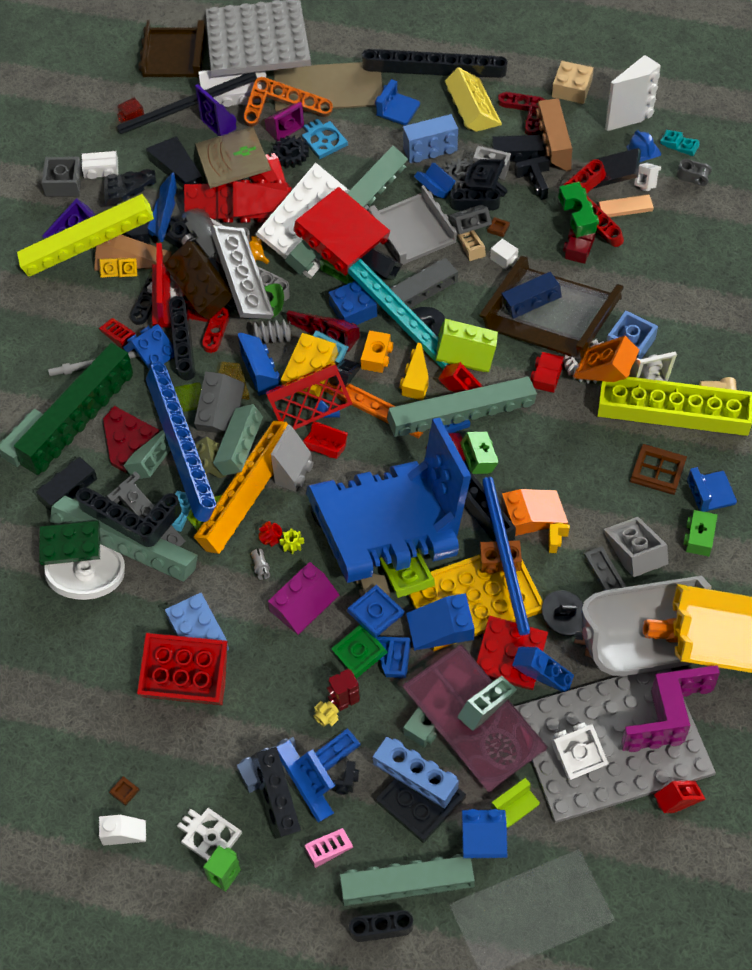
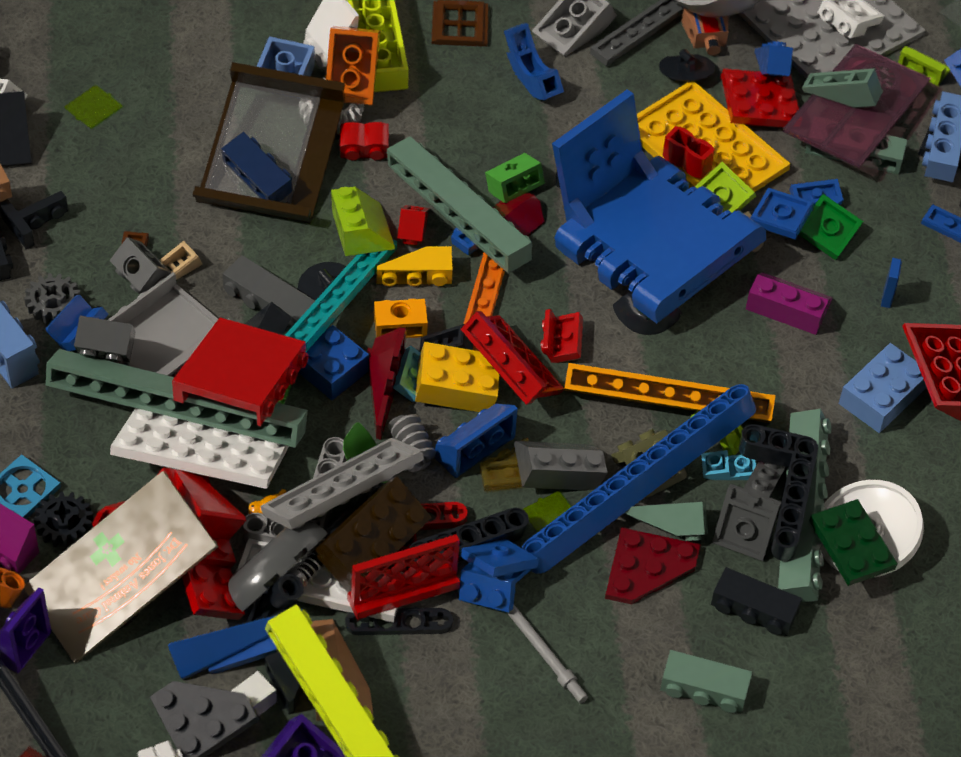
camera: 115 degrees left, 5 degrees down
(74, 409) = (637, 621): dark green brick -> none
(118, 267) = (363, 671): yellow slope -> none
(121, 342) = (487, 620): red slope -> none
(155, 344) = (499, 558): none -> blue plate
(172, 157) = (131, 665): black slope -> none
(238, 440) = (608, 418): sand green brick -> none
(261, 566) = (766, 354): light grey pin -> none
(270, 533) = (721, 353): red gear -> none
(283, 666) = (891, 283): none -> blue tile
(290, 460) = (619, 349): light grey slope -> none
(295, 544) = (719, 330): neon yellow gear -> none
(326, 713) = (918, 237): light yellow gear -> none
(343, 689) = (889, 221): dark red brick -> none
(404, 179) = (104, 339): none -> dark grey brick
(441, 623) = (762, 153): blue slope -> none
(453, 565) = (688, 152): none -> red brick
(466, 198) = (97, 273): black beam -> none
(485, 175) = (66, 254): black piece -> none
(487, 153) = (27, 257): light grey slope -> none
(490, 549) = (654, 120): dark orange brick -> none
(504, 254) = (186, 221): white brick -> none
(506, 556) = (694, 90): blue axle -> none
(533, 509) = (564, 111): slope -> none
(556, 532) = (596, 90): yellow bracket -> none
(575, 197) = (117, 131): green arch -> none
(578, 248) = (149, 153): dark red piece -> none
(578, 500) = (528, 66): none -> blue arch
(592, 179) = (76, 147): red beam -> none
(626, 206) = (56, 119): light nougat tile -> none
(634, 229) = (93, 106): none -> clear neon green piece

